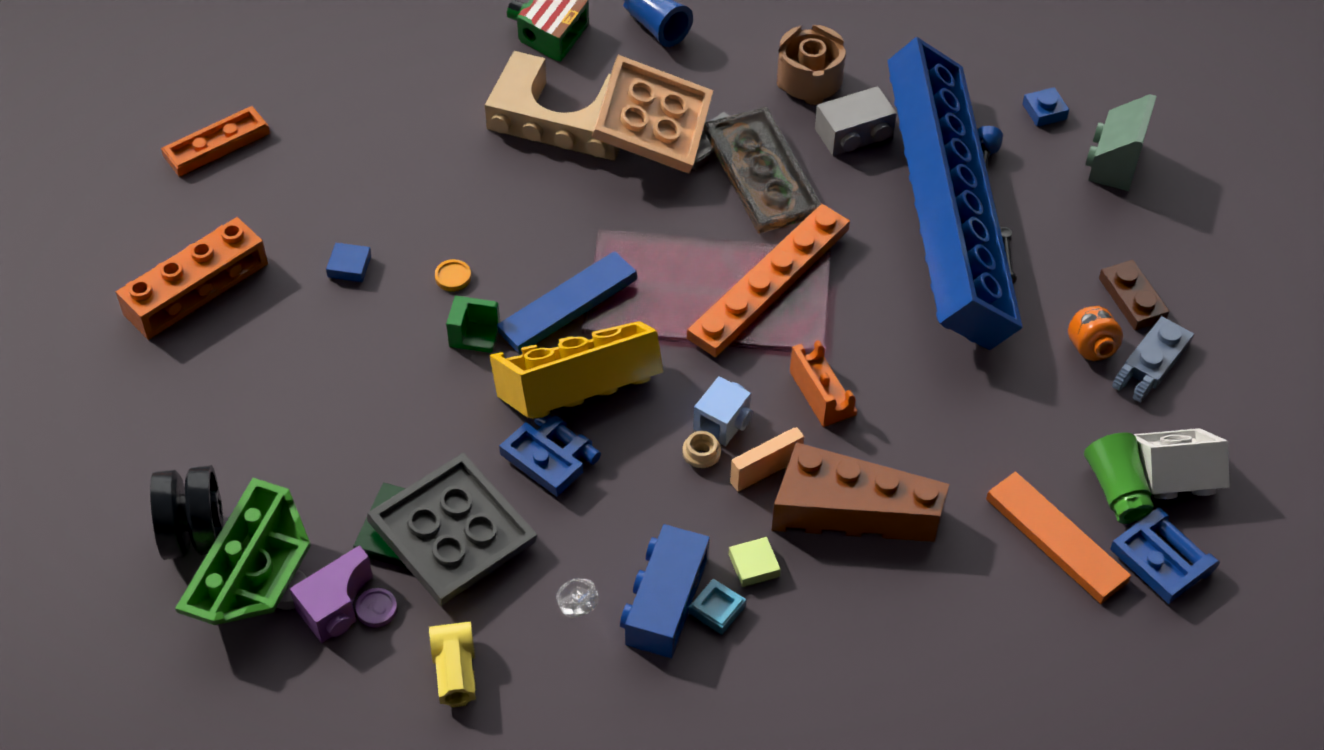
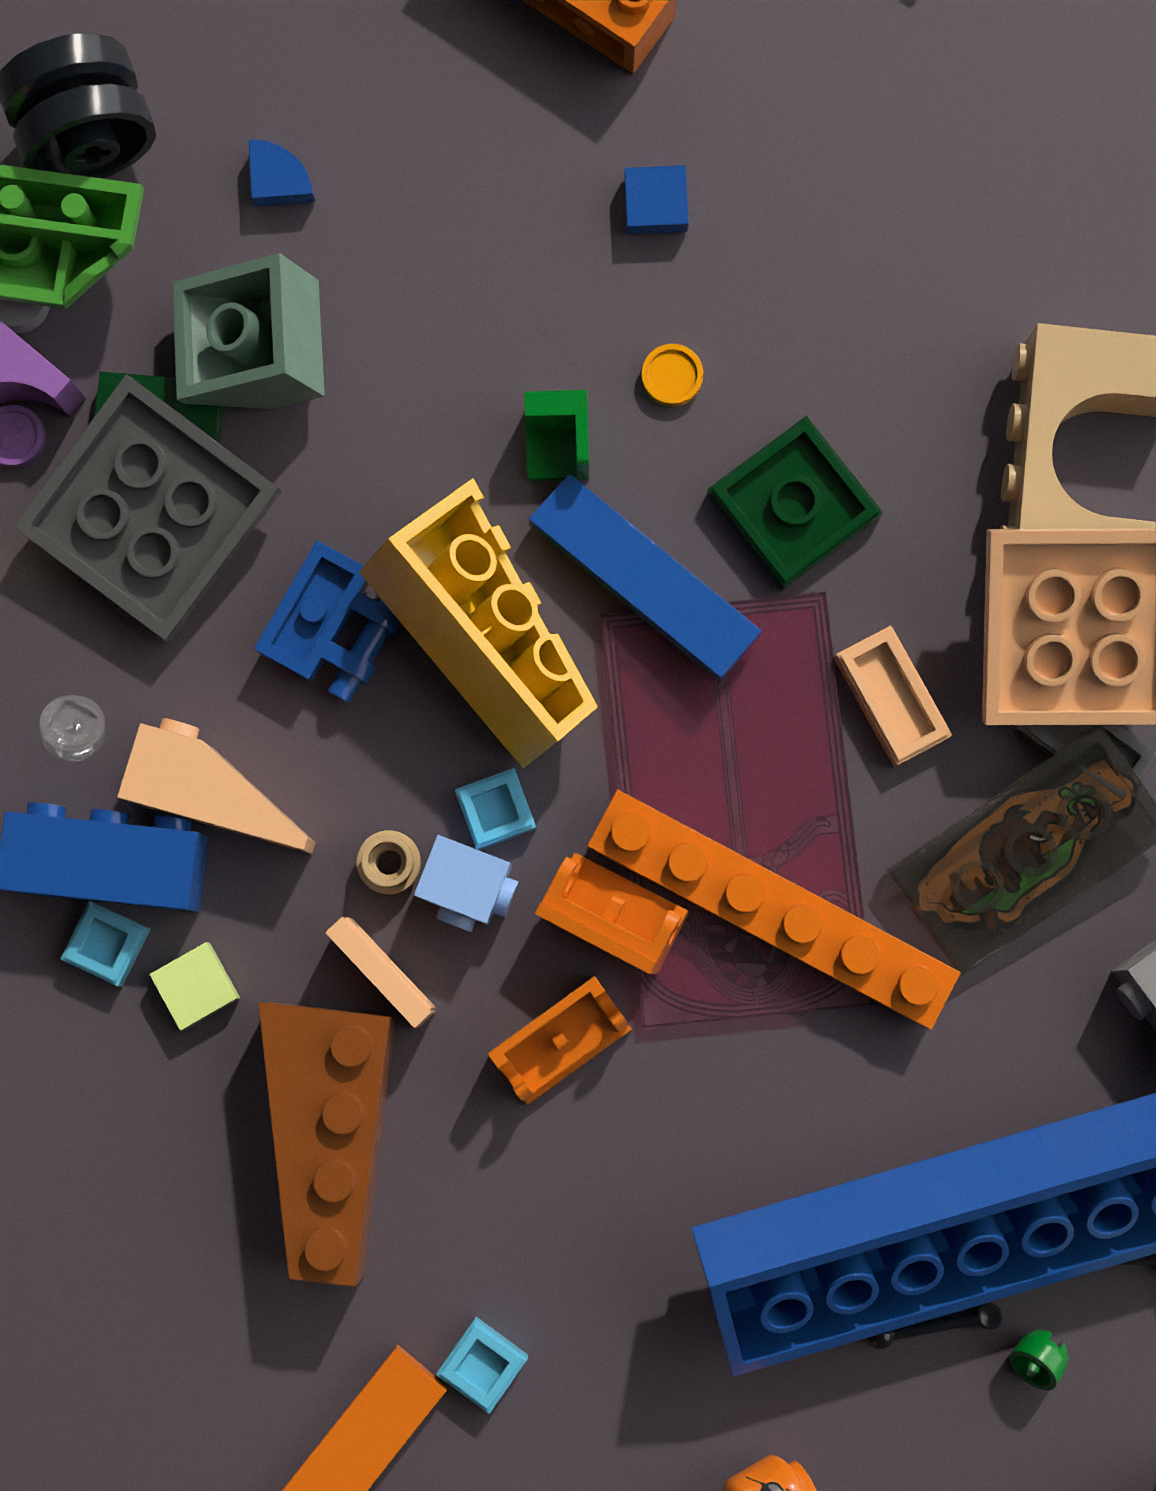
camera: 80 degrees right, 30 degrees up
(261, 437) = (277, 176): none -> blue tile
(362, 454) = (249, 336): none -> sand green slope
(544, 234) = (794, 502): none -> dark green tile
(625, 532) = (192, 781): none -> light nougat slope
(664, 212) = (892, 696): none -> light nougat tile
(680, 395) = (495, 809): none -> medium azure tile
(759, 345) = (612, 913): none -> orange hinge
(1002, 456) = (482, 1365): none -> medium azure tile
(1034, 209) = (1039, 1360): none -> green hinge

